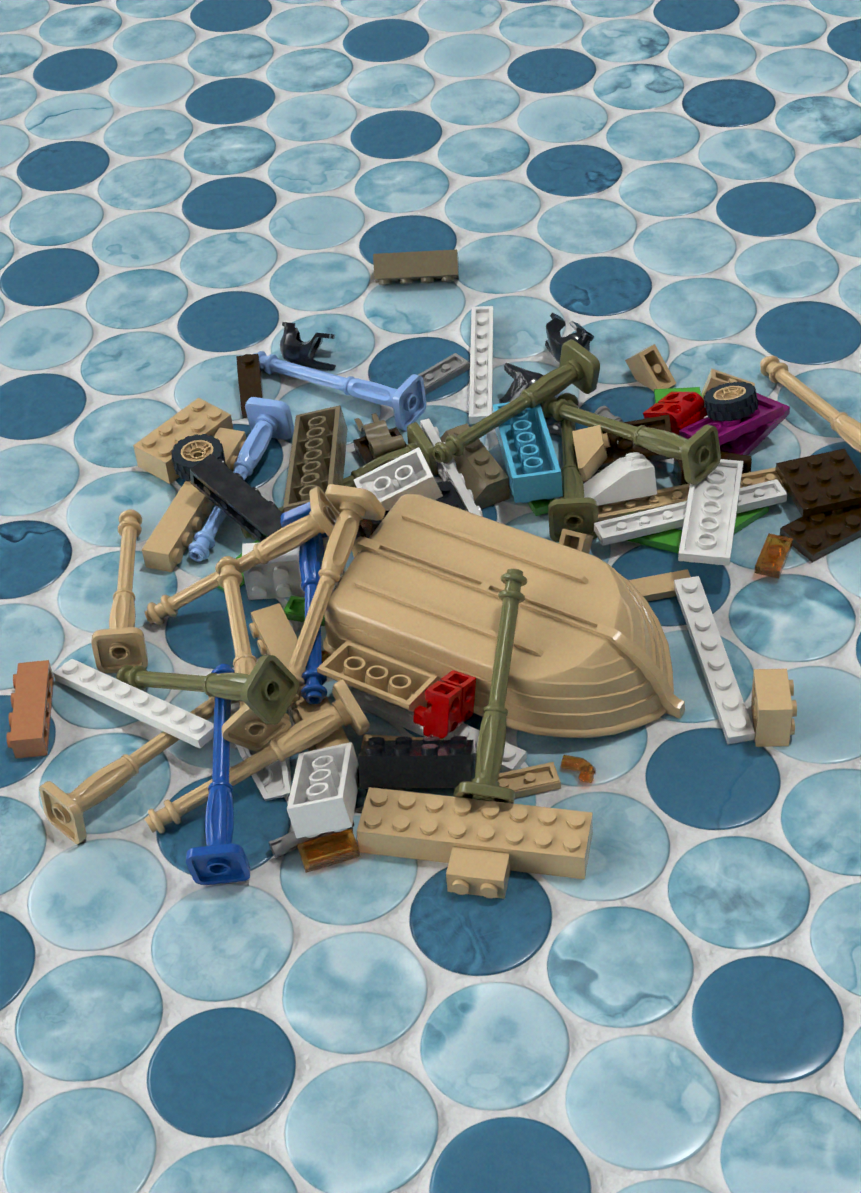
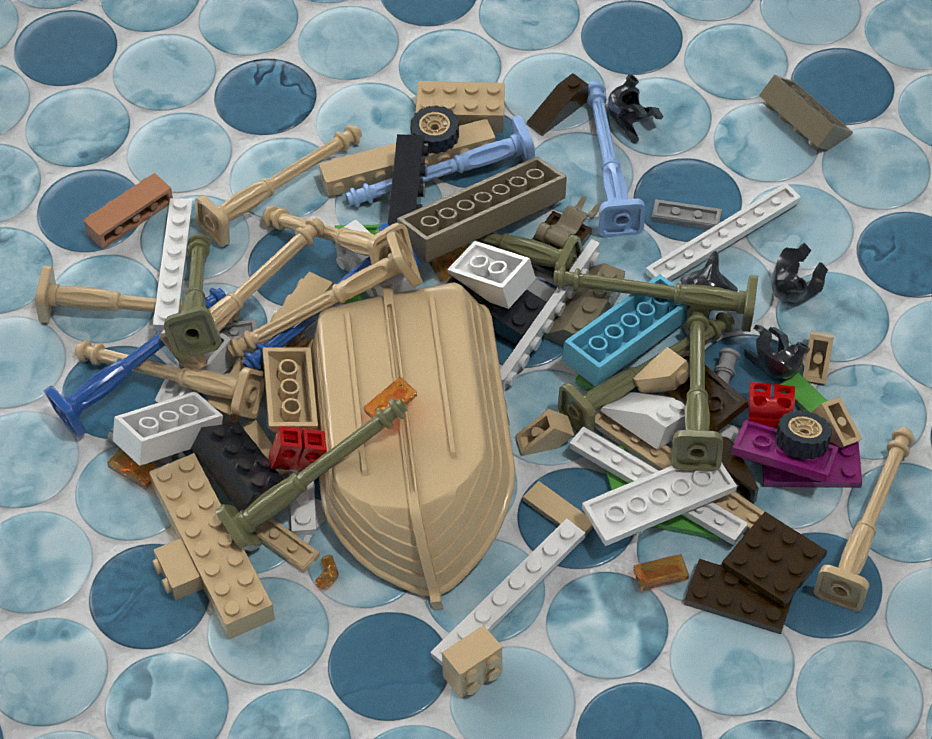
camera: 50 degrees right, 10 degrees up
(487, 587) = (395, 390): none -> clear orange plate
(636, 392) = (779, 364): none -> black piece

